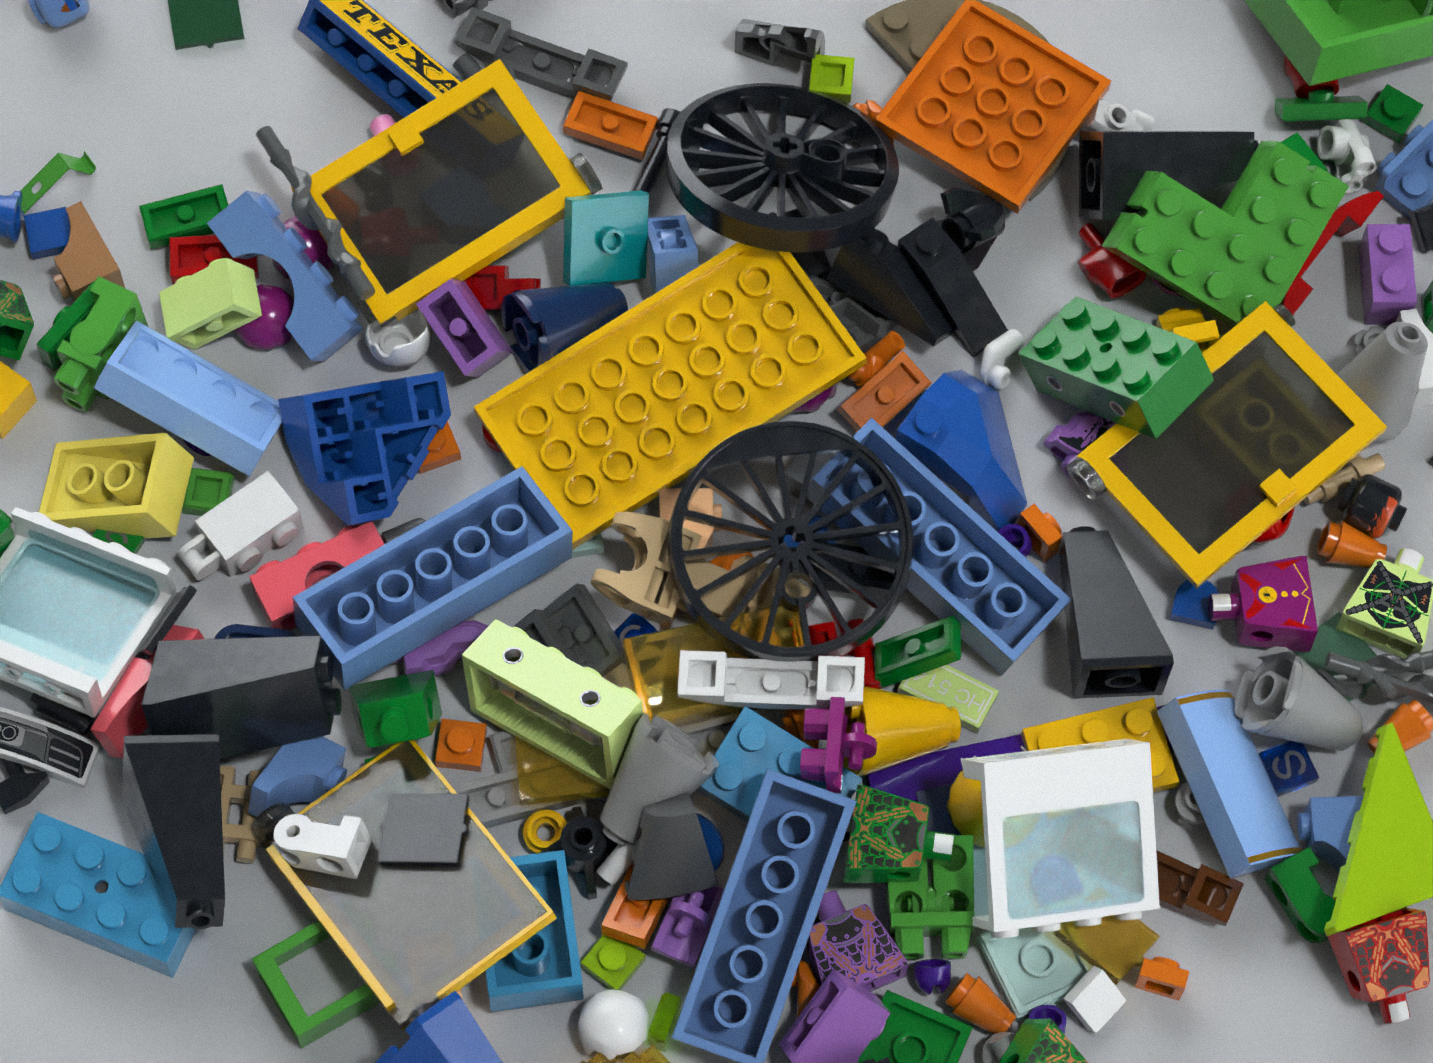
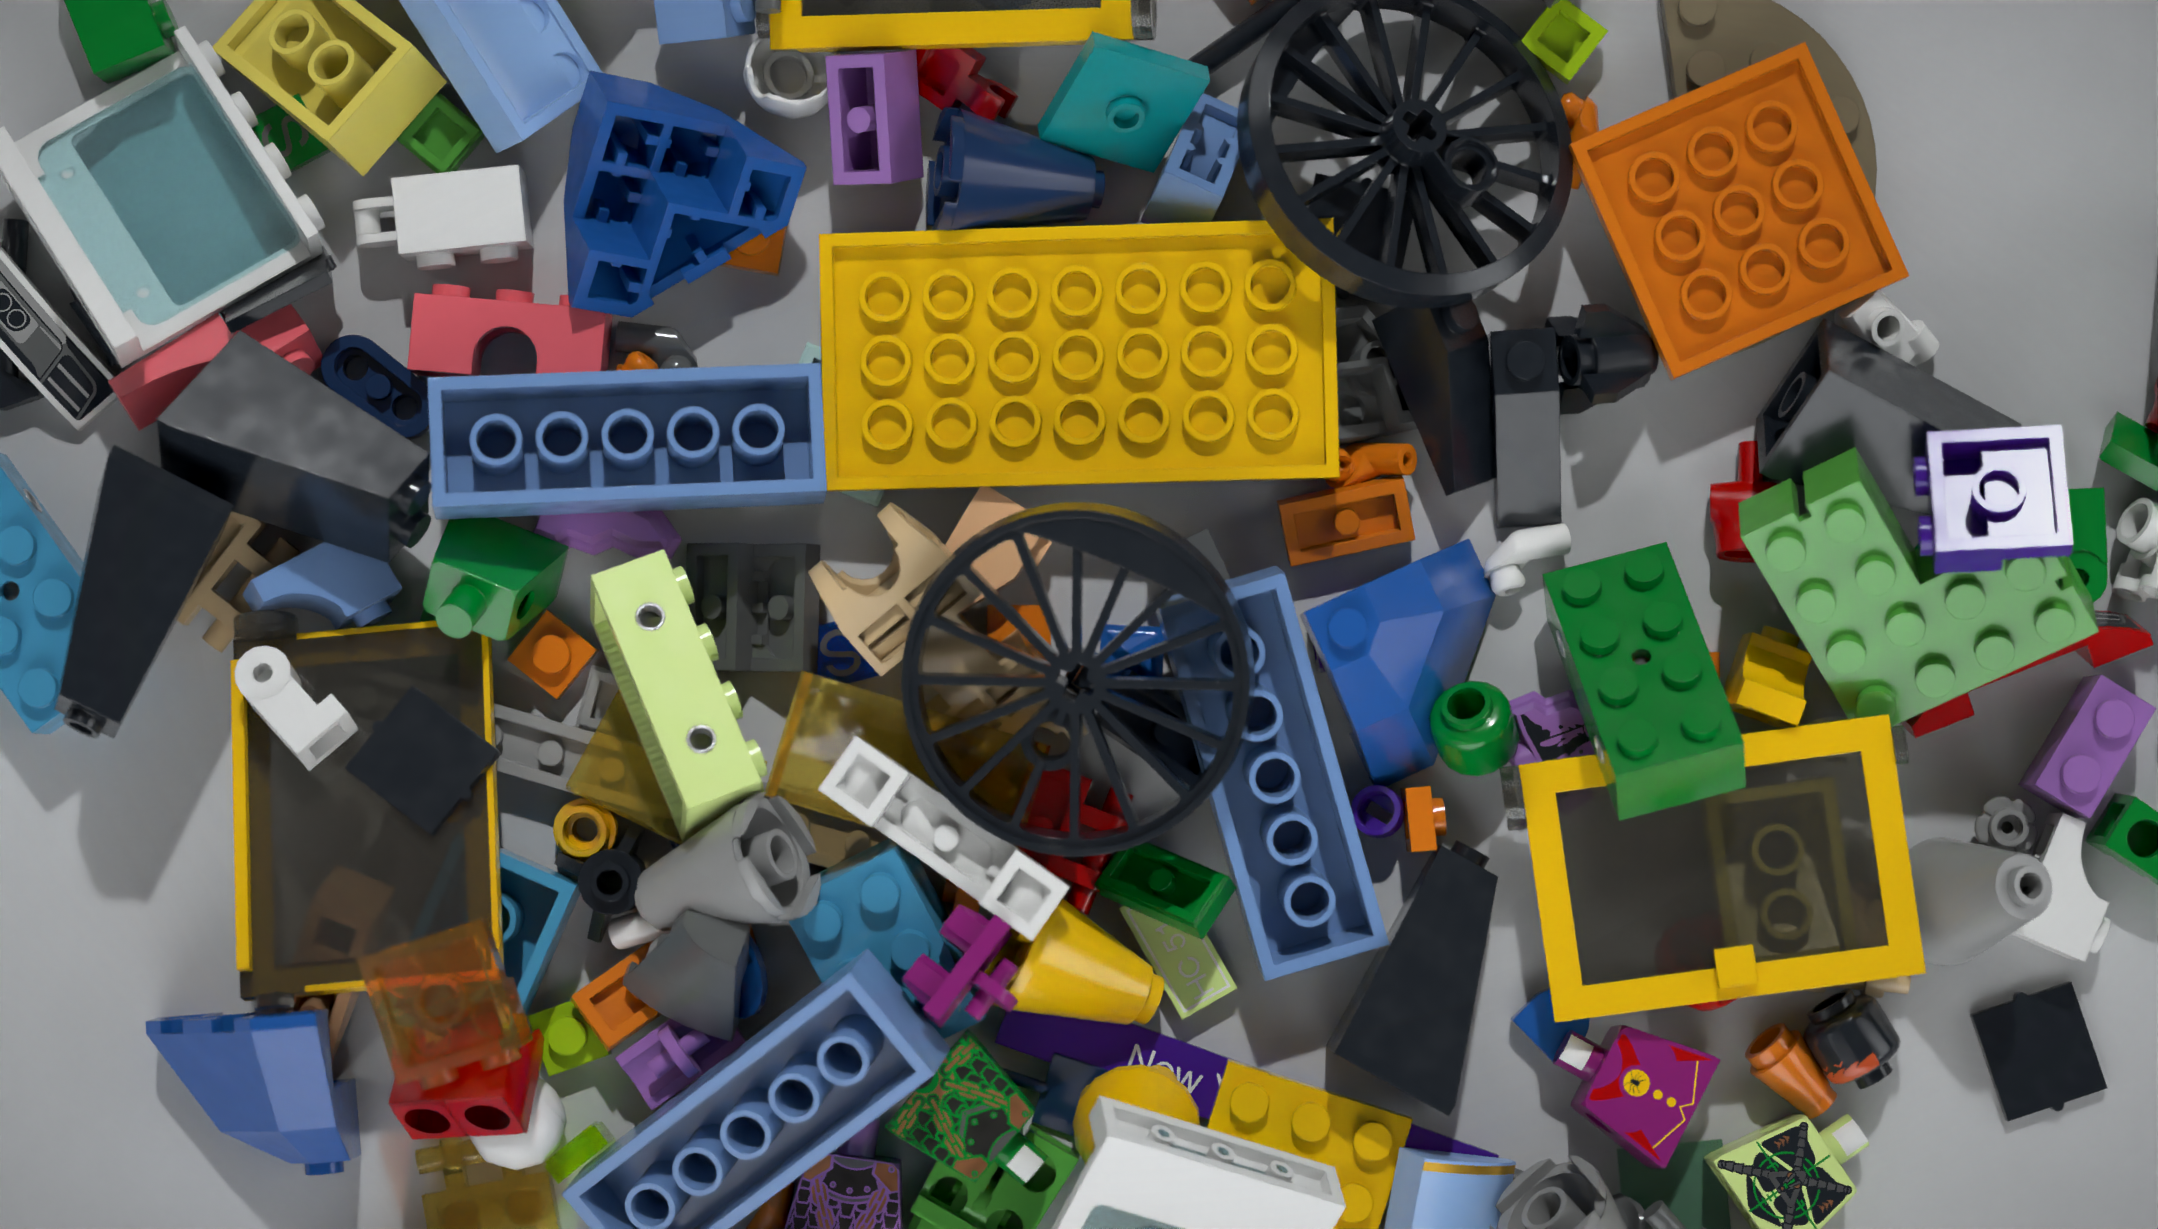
camera: 30 degrees right, 20 degrees up
(307, 1028) = (158, 848): bright green window -> none
(531, 944) = (445, 1004): none -> clear orange plate
(582, 989) = (477, 1102): none -> red piece
(1036, 459) = (1474, 728): none -> green head
(1239, 140) = (1993, 497): none -> plate

